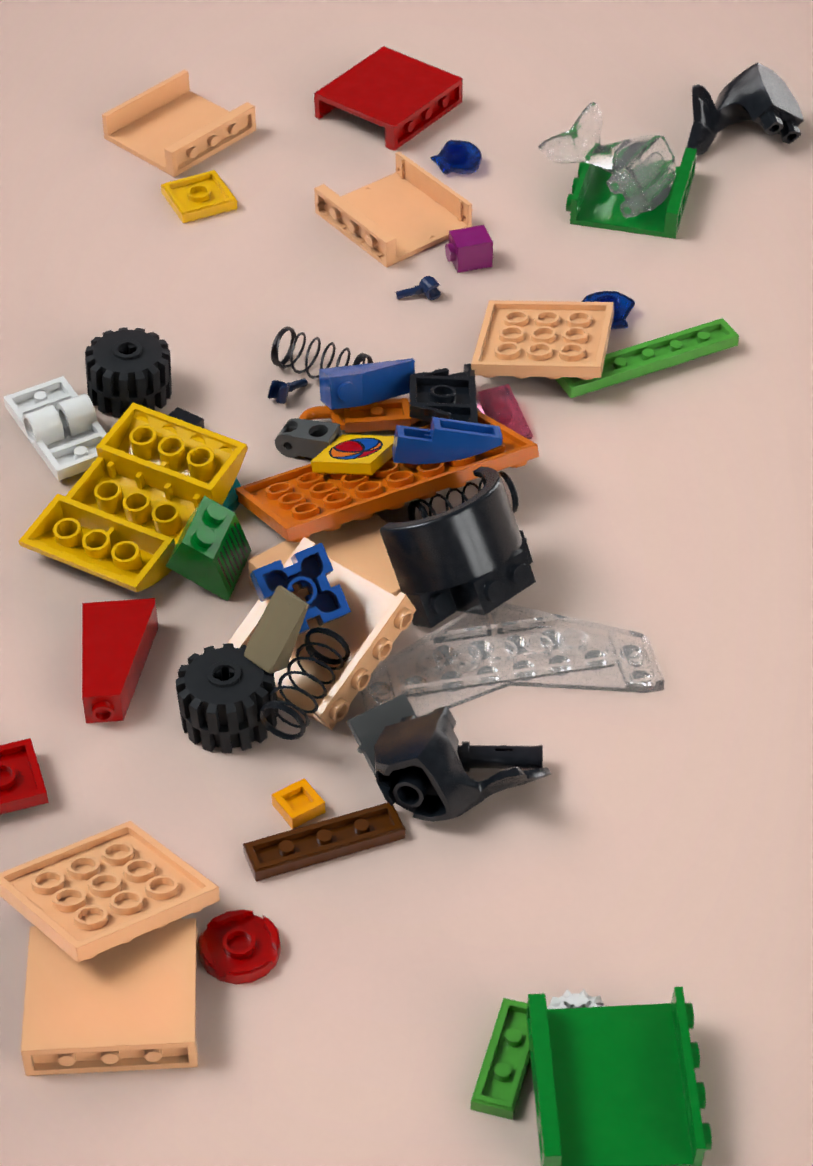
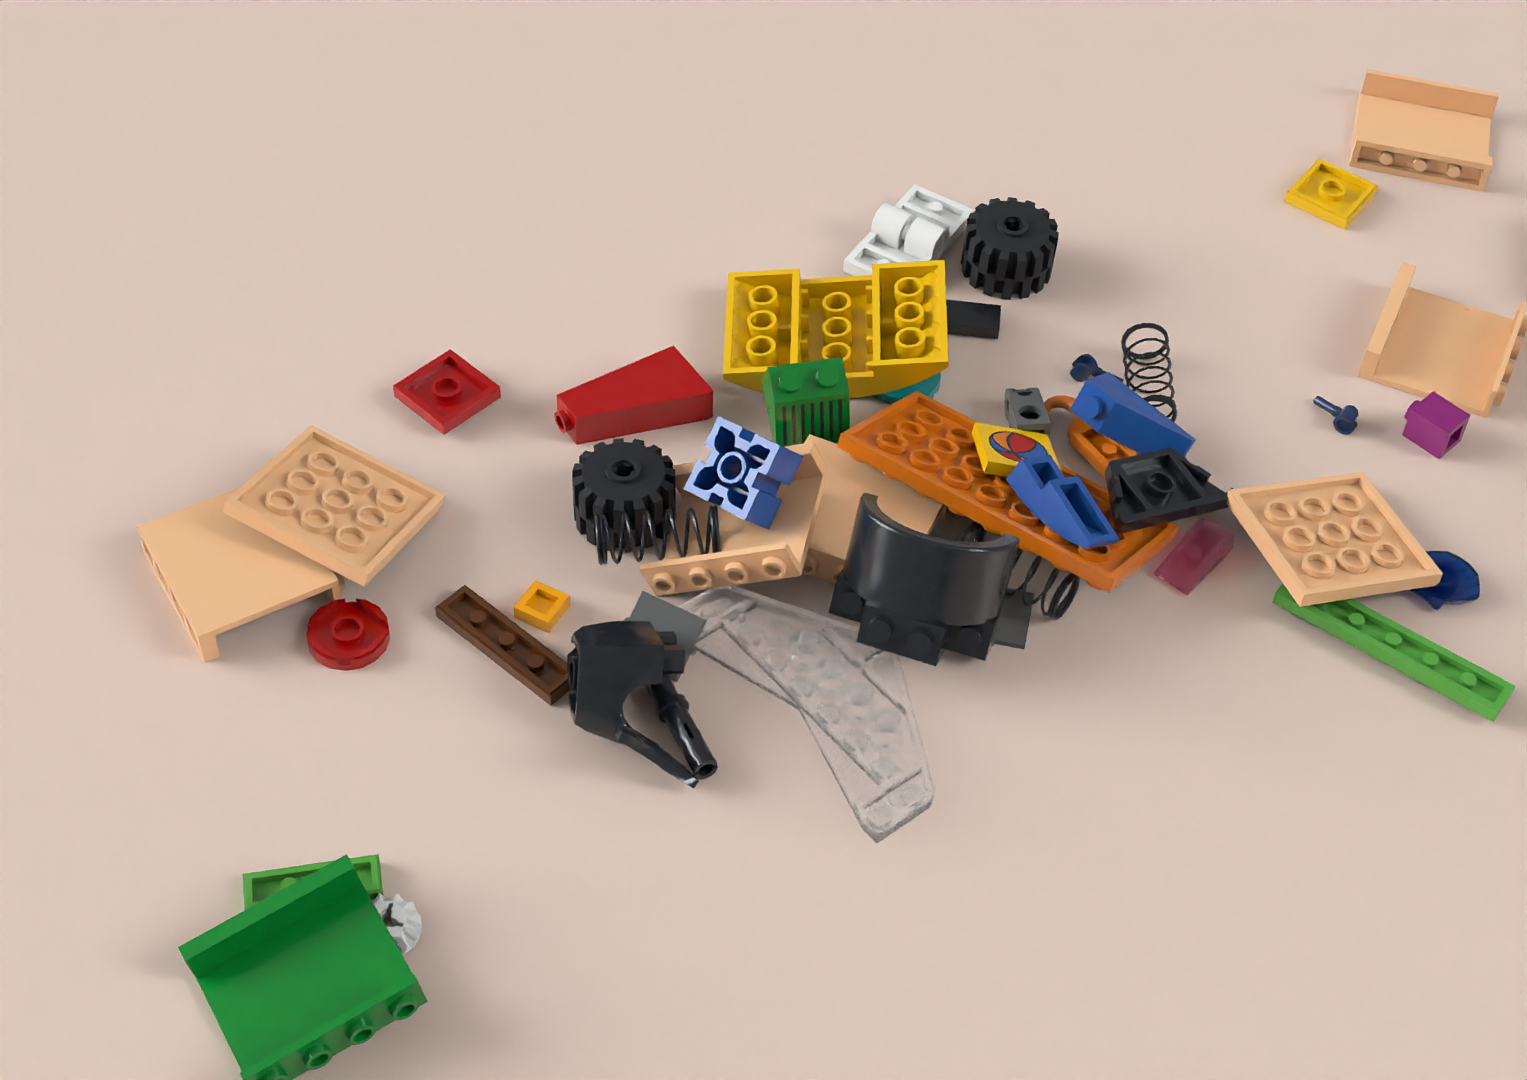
camera: 60 degrees right, 5 degrees up
(277, 631) = (675, 476): dark tan slope -> none

